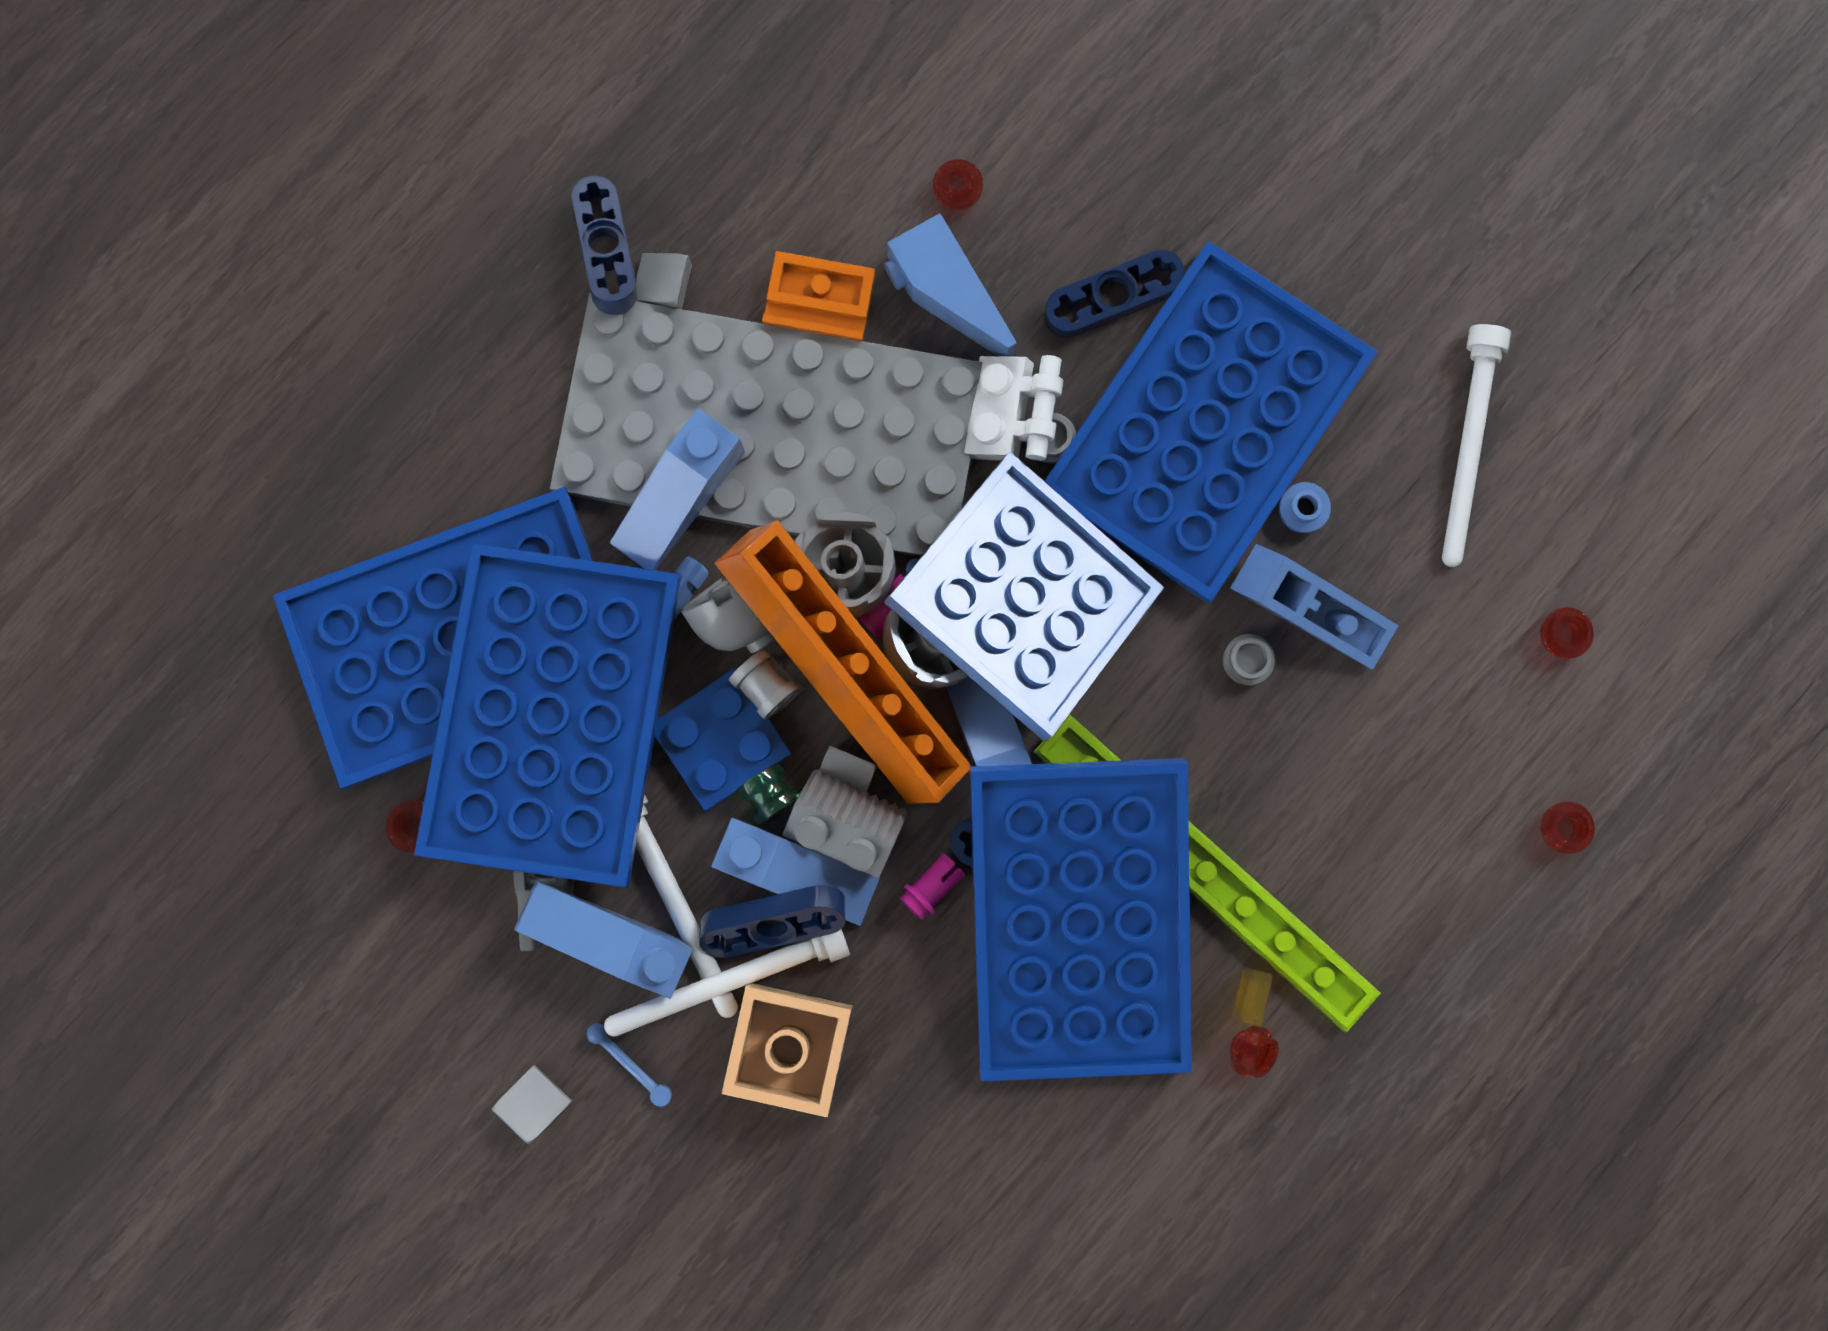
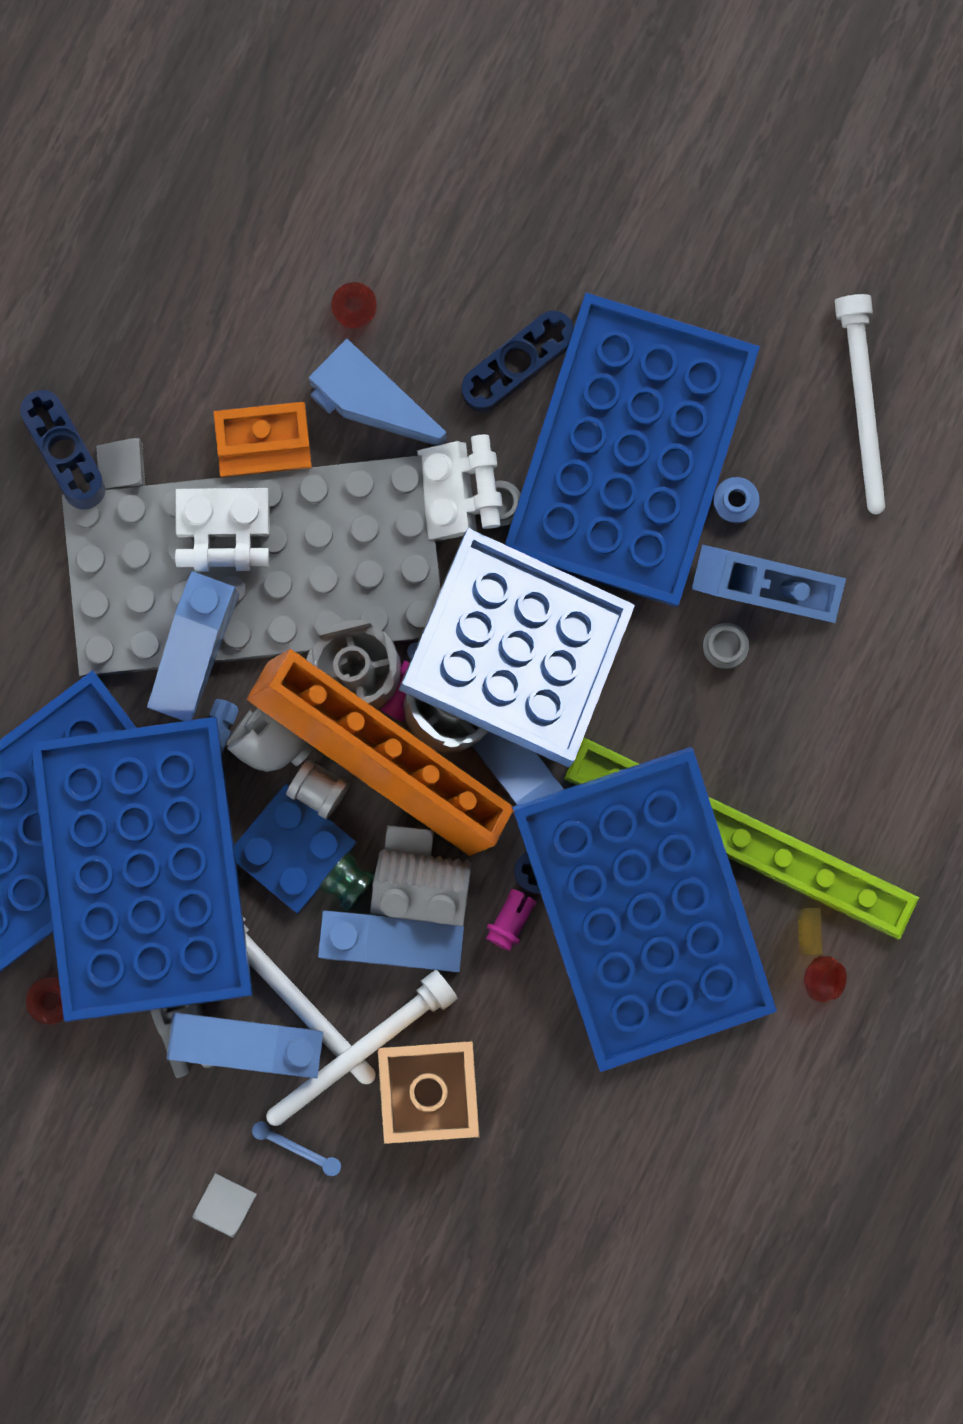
camera: 10 degrees left, 0 degrees up
(752, 361) = (222, 513): none -> white plate
(803, 914) = (418, 965): dark blue beam -> none

